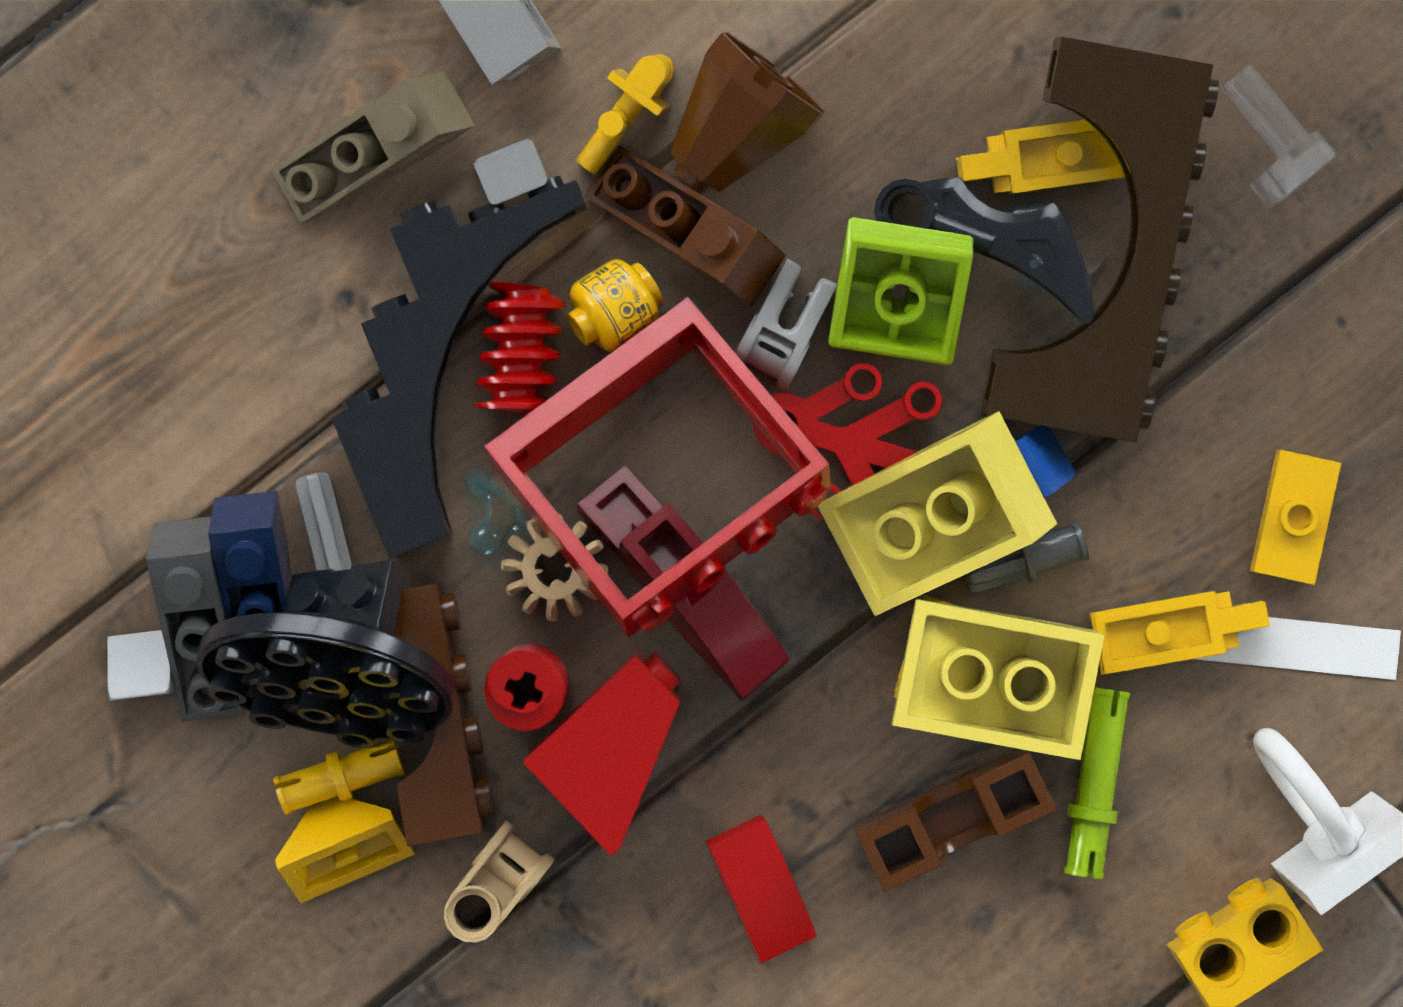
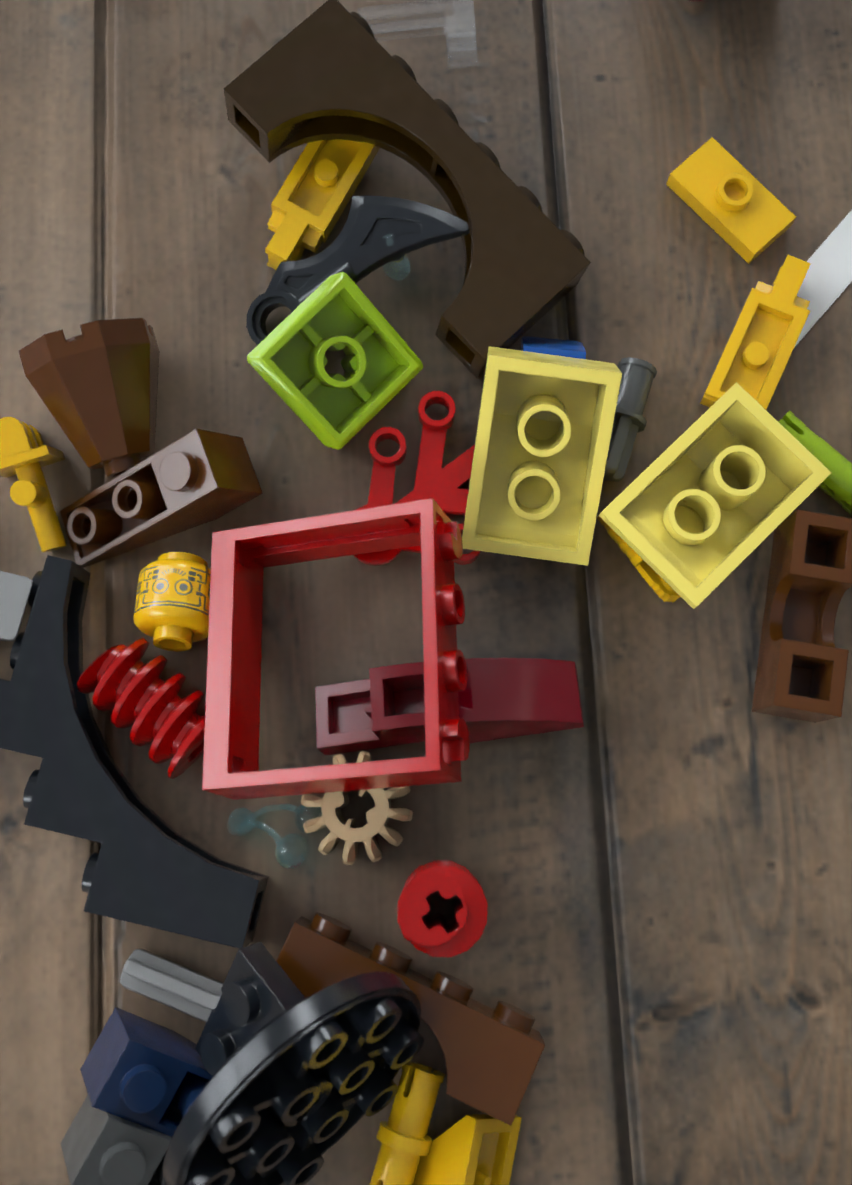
camera: 55 degrees left, 10 degrees down
(497, 882) = (597, 1056): tan piece -> none
(608, 747) = (548, 873): red slope -> none
(761, 888) = (758, 826): red slope -> none
(787, 343) = (313, 490): light grey piece -> none

